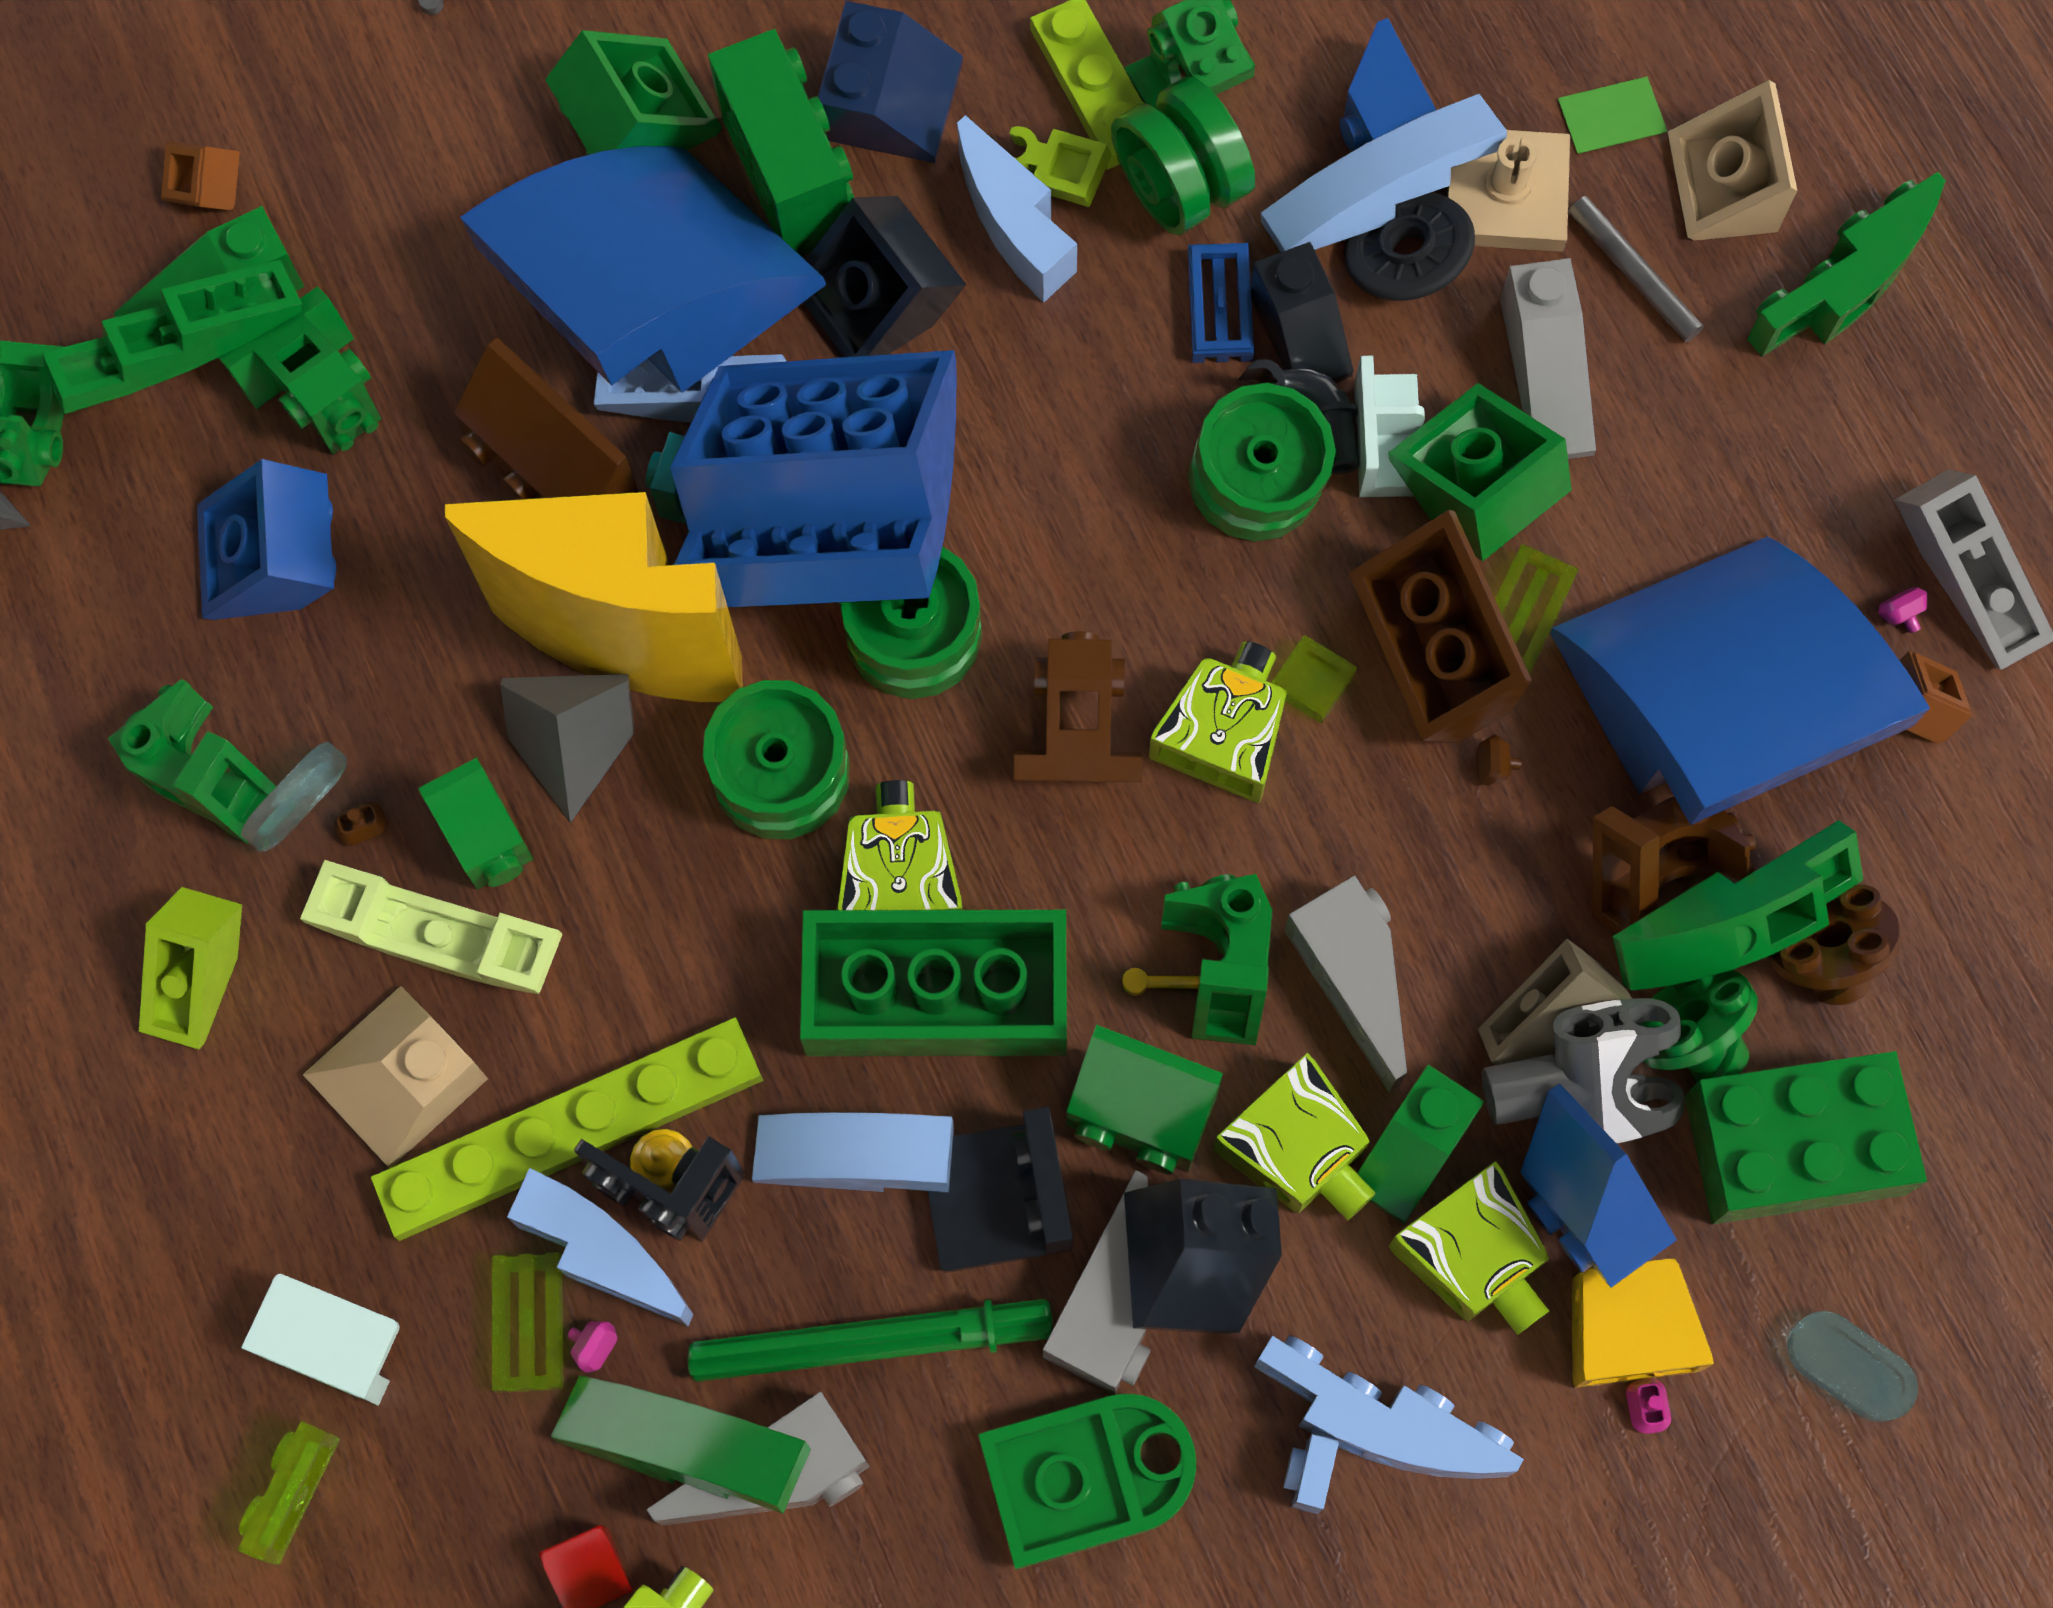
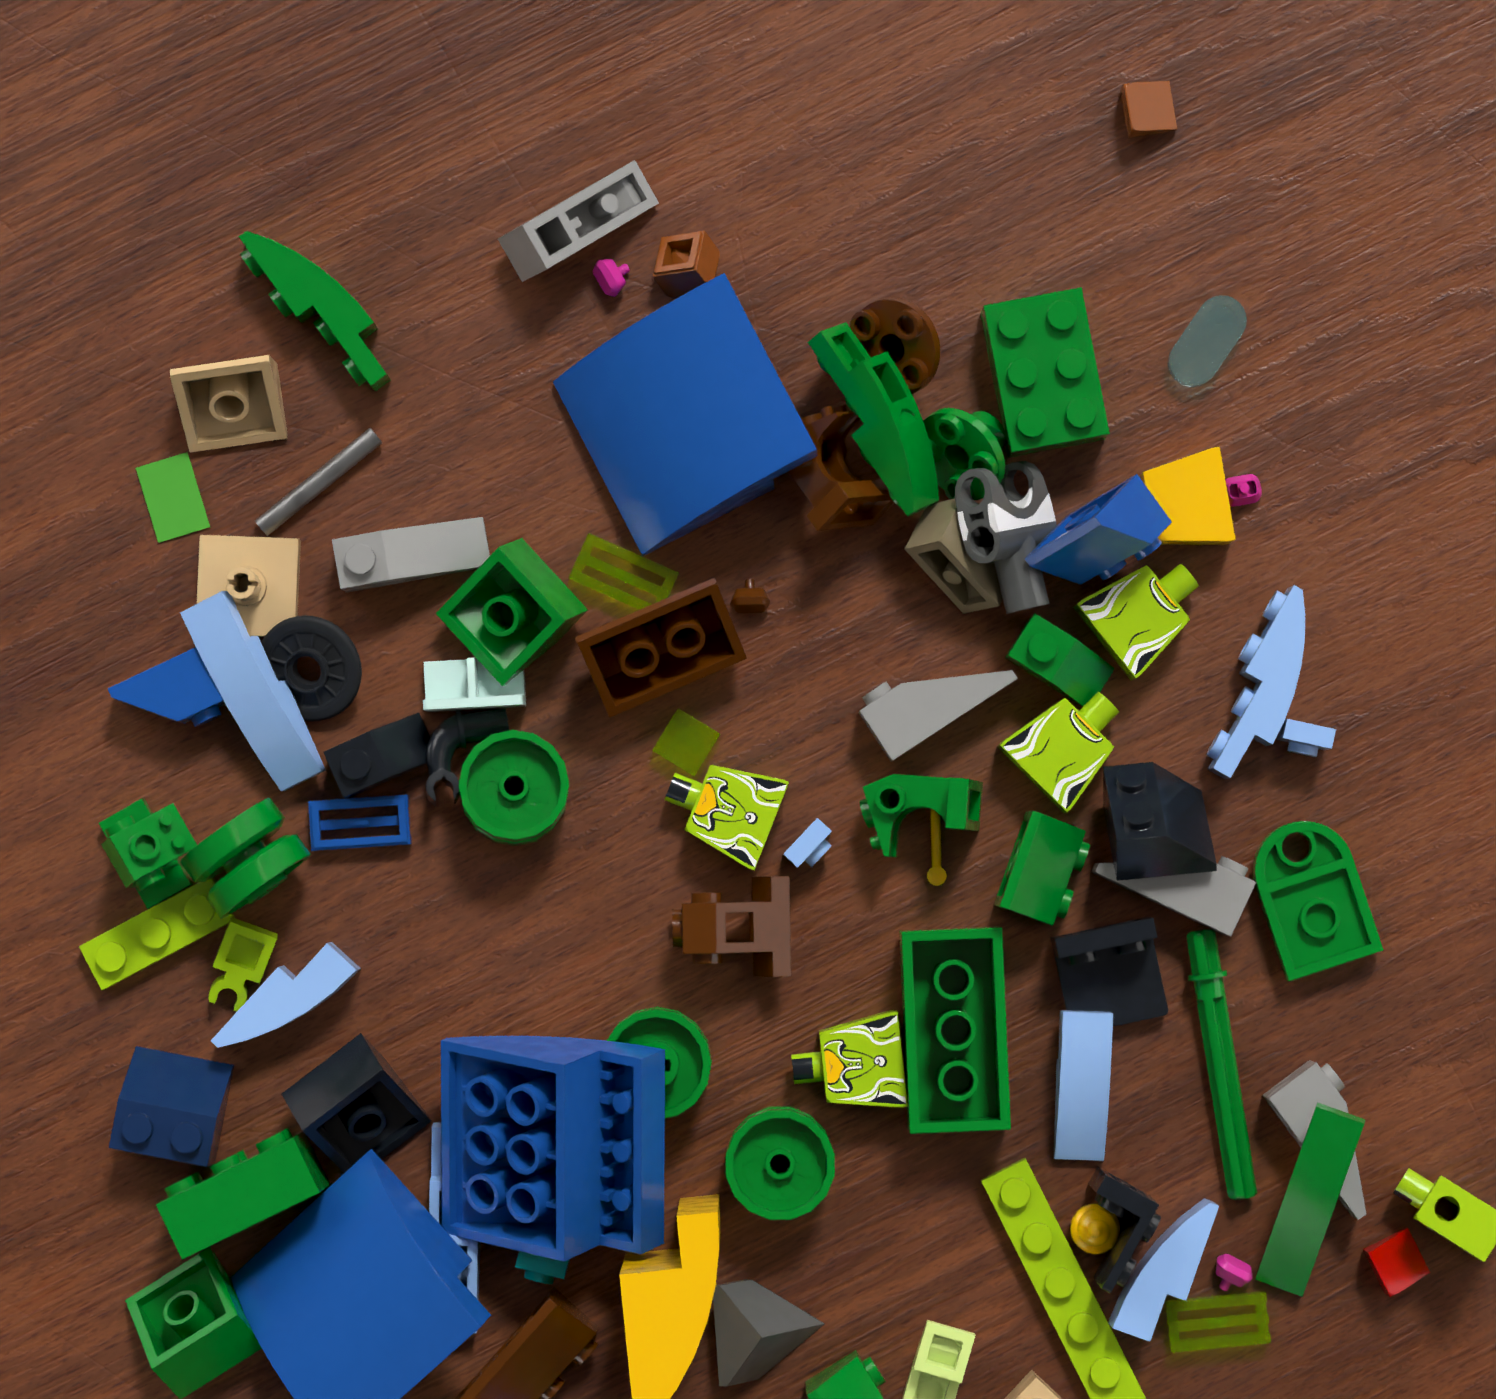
camera: 95 degrees left, 15 degrees up
(1181, 815) = (809, 845): none -> light blue plate

